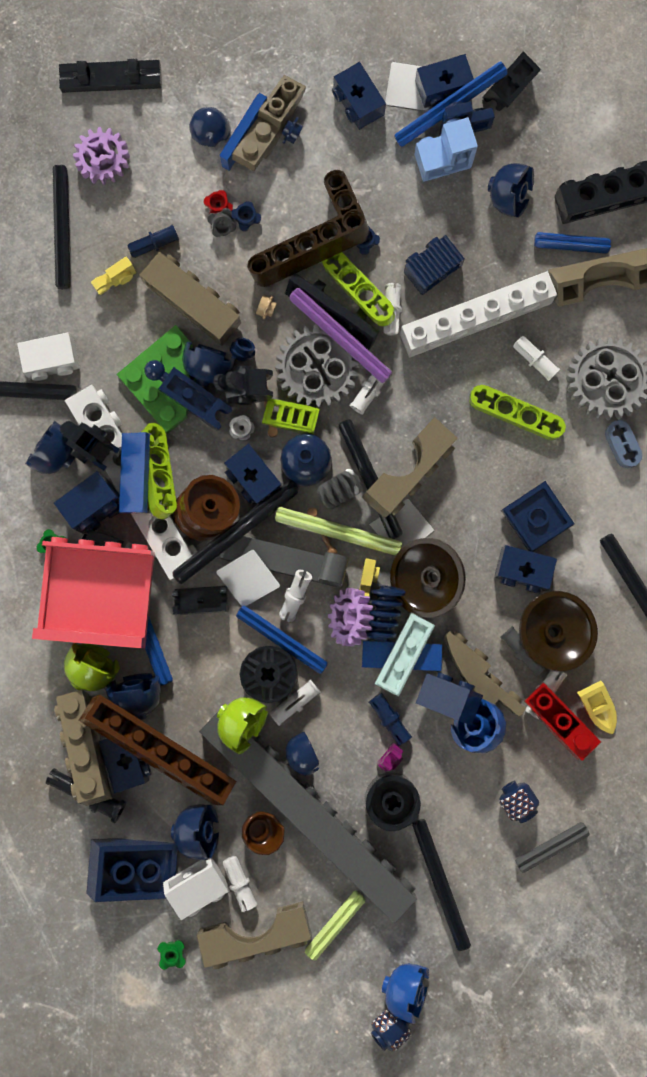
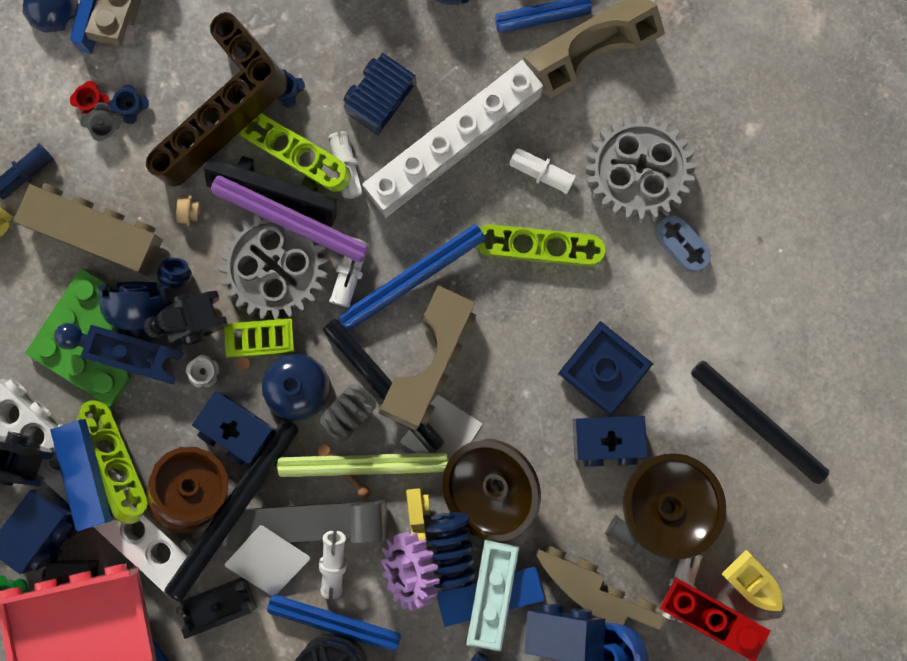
camera: 15 degrees left, 0 degrees up
(416, 406) = (412, 277): none -> blue axle

